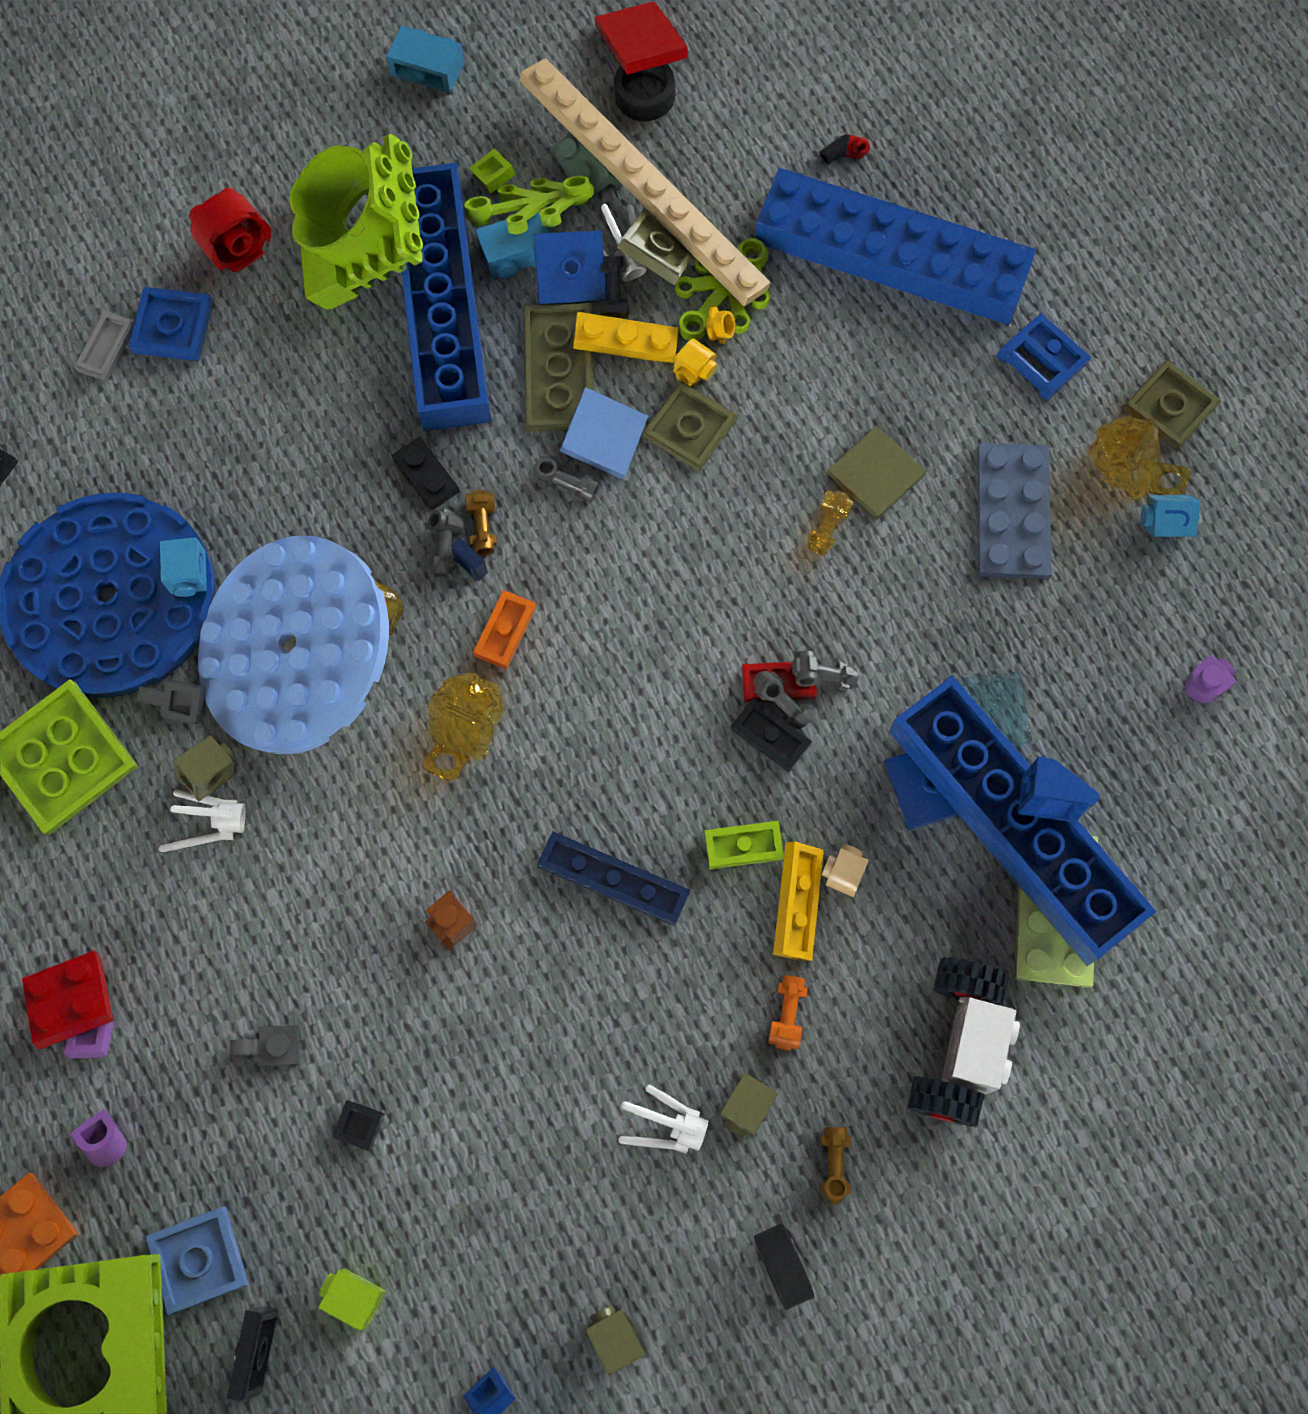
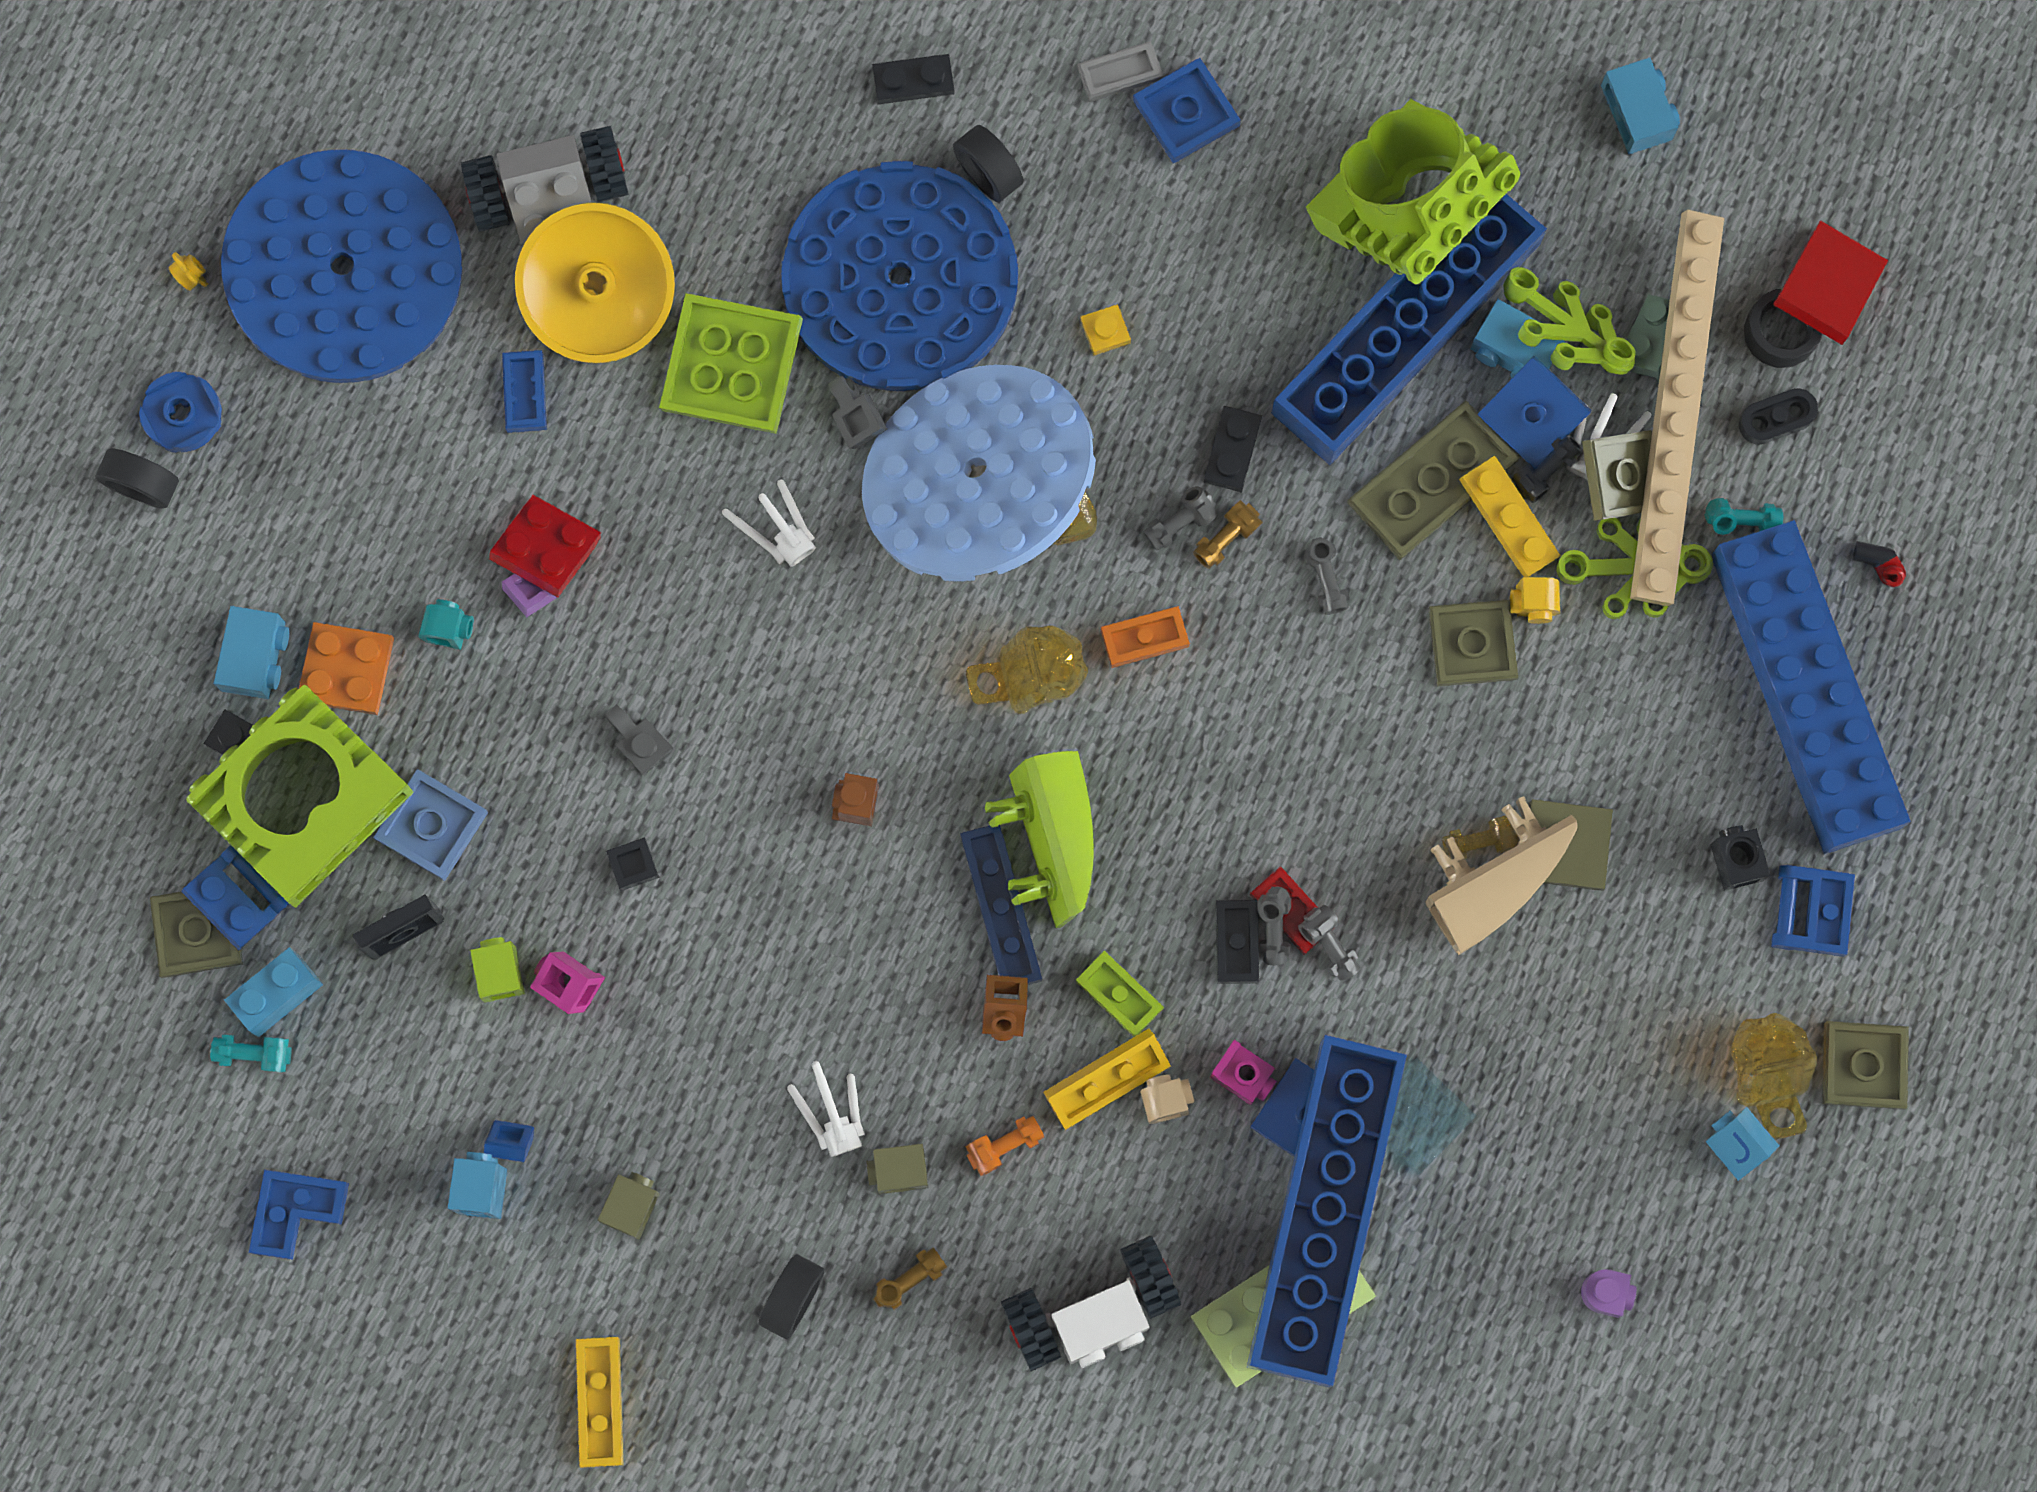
camera: 50 degrees right, 5 degrees up
(55, 1123) = (445, 624): none -> teal plate
(84, 470) = (988, 163): none -> black tyre
(100, 1140) = (460, 669): medium lavender plate -> none
(183, 566) = (972, 322): dark azure brick -> none
(205, 767) = (819, 489): olive brick -> none
(229, 230) = (1313, 85): red brick -> none
(270, 490) = (1105, 329): none -> yellow plate
(398, 1264) = (580, 988): none -> dark pink brick
(469, 560) = (1181, 554): dark blue tile -> none
(492, 171) = (1576, 261): lime plate -> none
(592, 793) = (1059, 827): none -> lime piece
(603, 433) = (1399, 573): medium blue tile -> none
(697, 135) = (1776, 416): none -> black plate
(698, 936) = (1003, 1016): none -> dark orange brick
(720, 325) = (1593, 591): yellow plate -> none
(740, 212) = (1725, 519): none -> teal bar
(860, 812) = (1227, 1074): none -> dark pink brick
(877, 534) = (1488, 896): none -> tan piece
(973, 359) = (1736, 875): none -> black brick
(1014, 511) = (1632, 997): sand blue plate -> none
(1054, 792) = (1358, 1217): blue tile -> none

